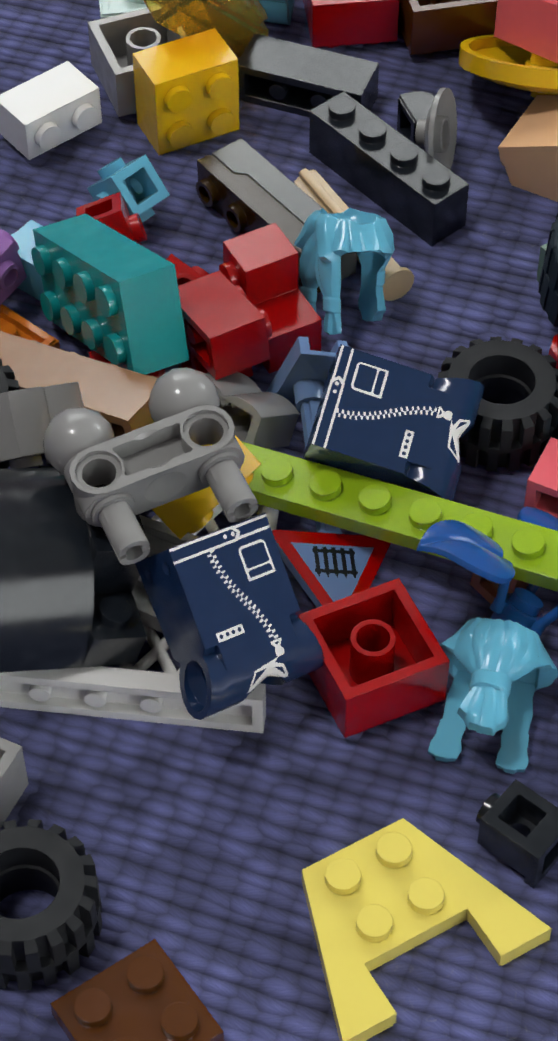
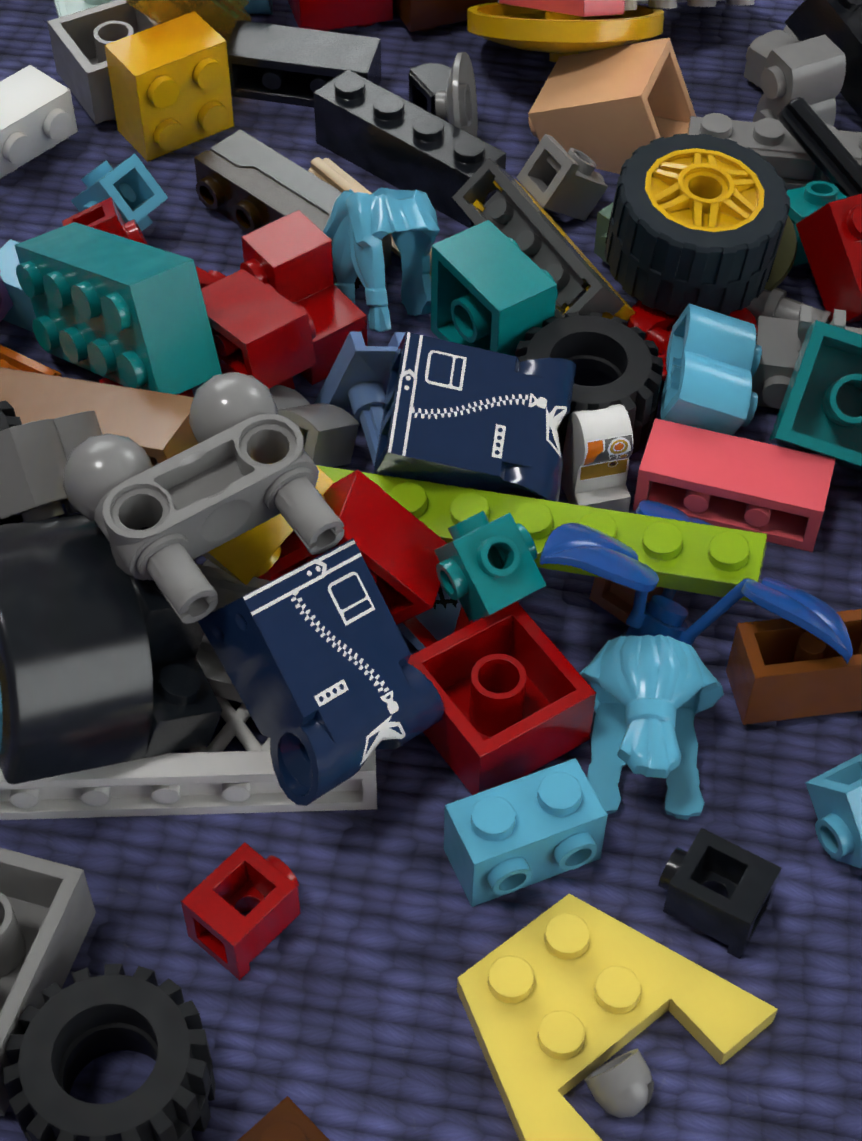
camera: 10 degrees left, 0 degrees up
(141, 794) = (236, 886): none -> red brick
(302, 520) = (390, 540): none -> red brick
(374, 764) = (524, 831): none -> medium azure brick
(398, 541) = (488, 564): none -> teal brick
(416, 968) = (622, 1085): none -> light grey hinge
(427, 311) = (487, 290): none -> teal brick
(482, 273) = (523, 219): none -> dark grey piece
(495, 468) = (598, 458): none -> white leg
(517, 212) = (562, 179): none -> light grey brick

